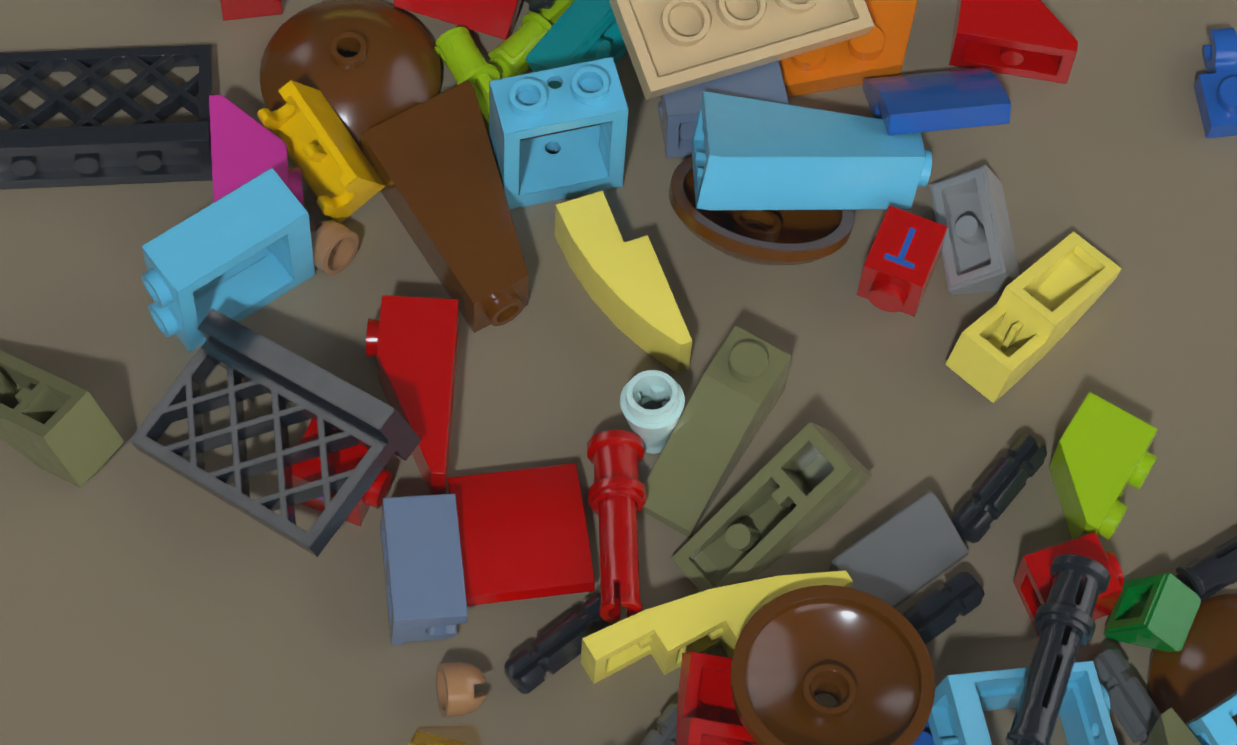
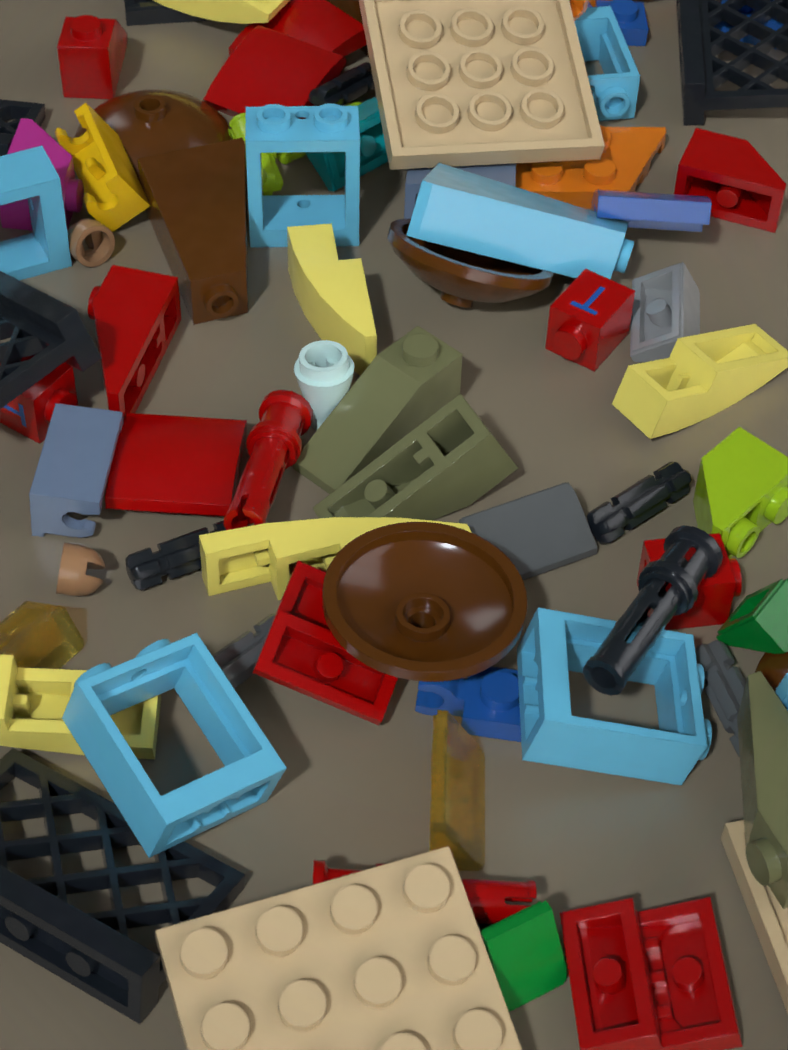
camera: 15 degrees right, 15 degrees down
(940, 608) = (555, 586): black axle -> none

